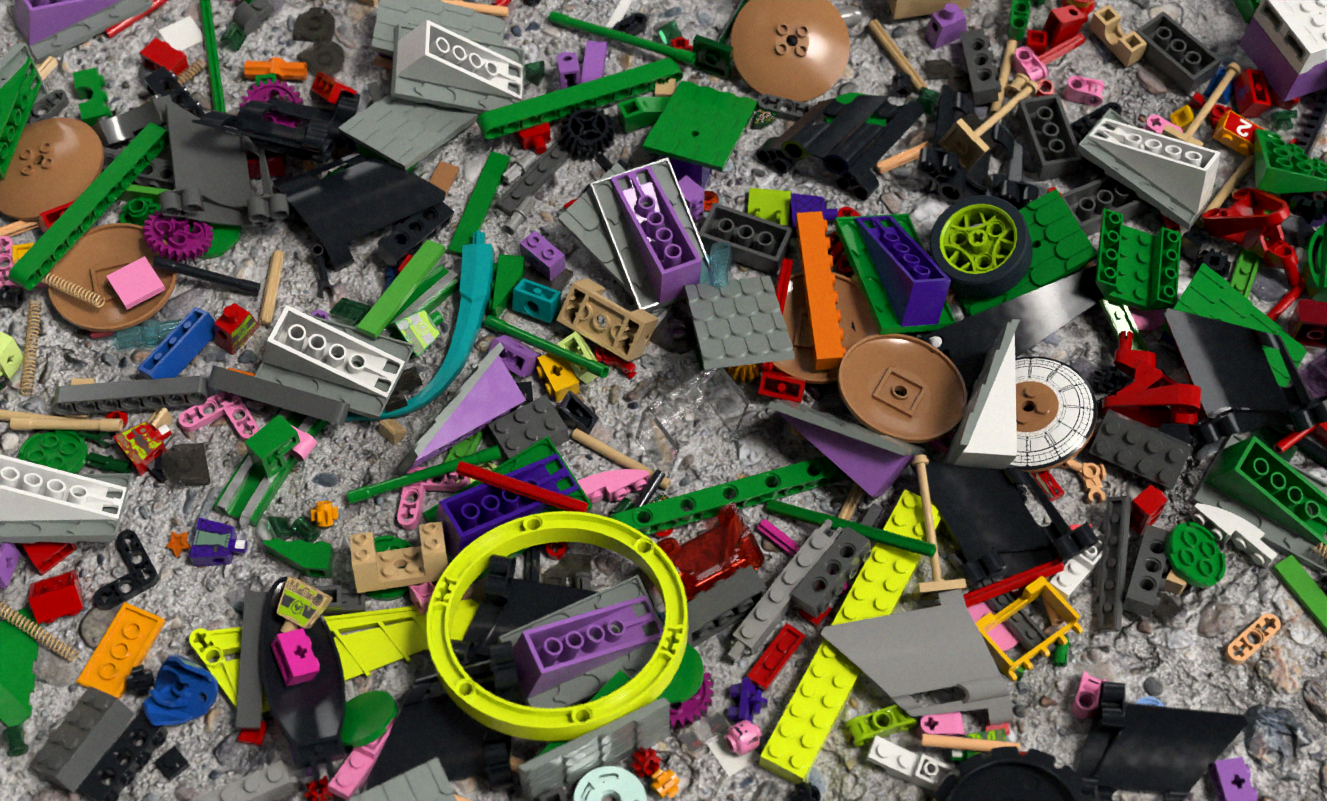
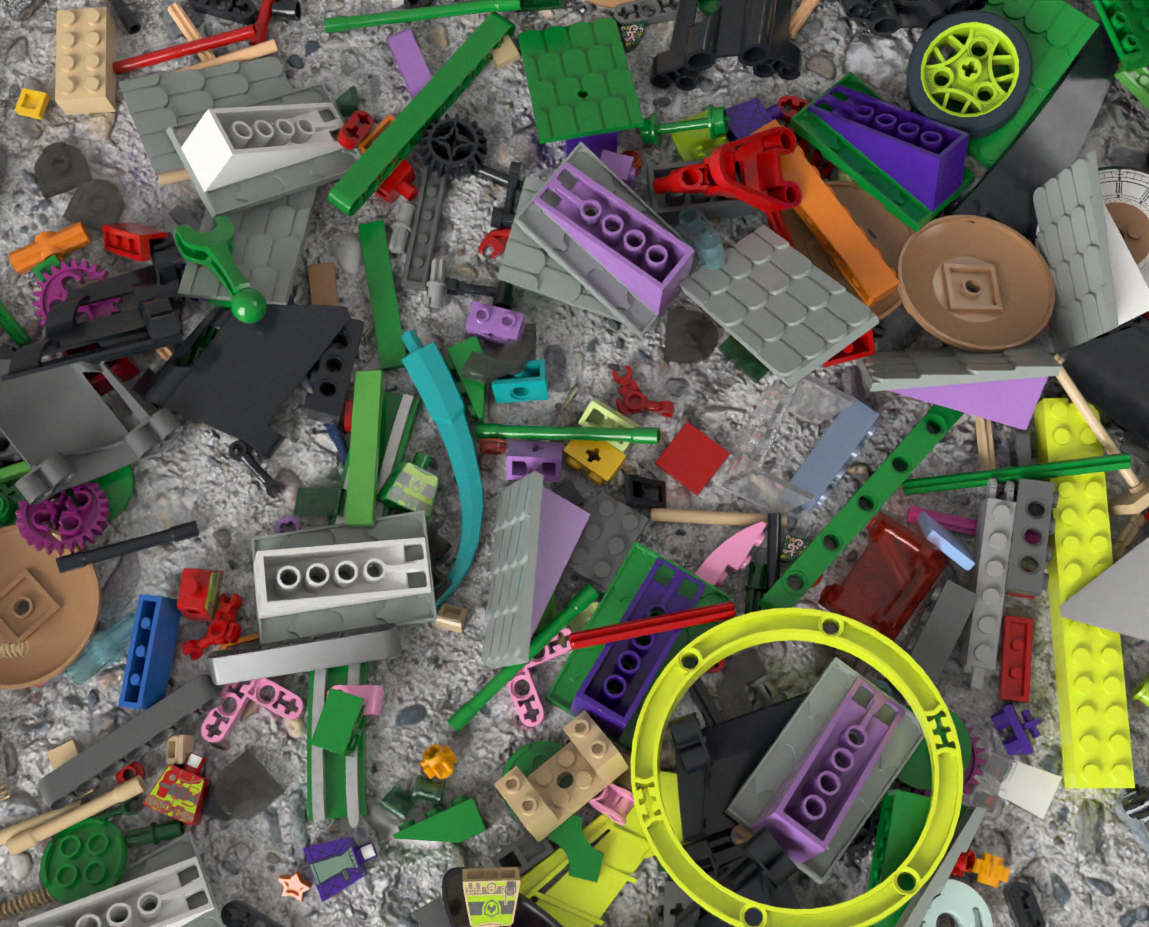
camera: 25 degrees left, 15 degrees up
(135, 282) = (51, 602): bright pink tile -> none
(232, 359) = (221, 631): none -> red piece
(271, 287) = (210, 518): tan axle -> none
(378, 114) = (215, 252): none -> green piece
(381, 623) = (582, 858): none -> green tile
(490, 332) = (493, 446): none -> clear red tile
(526, 85) = (352, 127): none -> red beam
(537, 280) = (509, 361): none -> clear smoke tile
(561, 242) = (501, 295): none -> black brick
(568, 68) = (385, 80): medium lavender torso -> none
(624, 332) = (642, 369): tan plate -> none
(624, 410) = (692, 459): none -> red tile
(640, 111) = (499, 93): green slope -> none
(724, 451) = (835, 448): none -> sand blue brick
(742, 737) = (1039, 772): bright pink head -> none
(770, 546) = (945, 541): none -> light blue tile
(780, 197) = (716, 121): none -> green piece
(787, 229) = (759, 169): none -> red connector

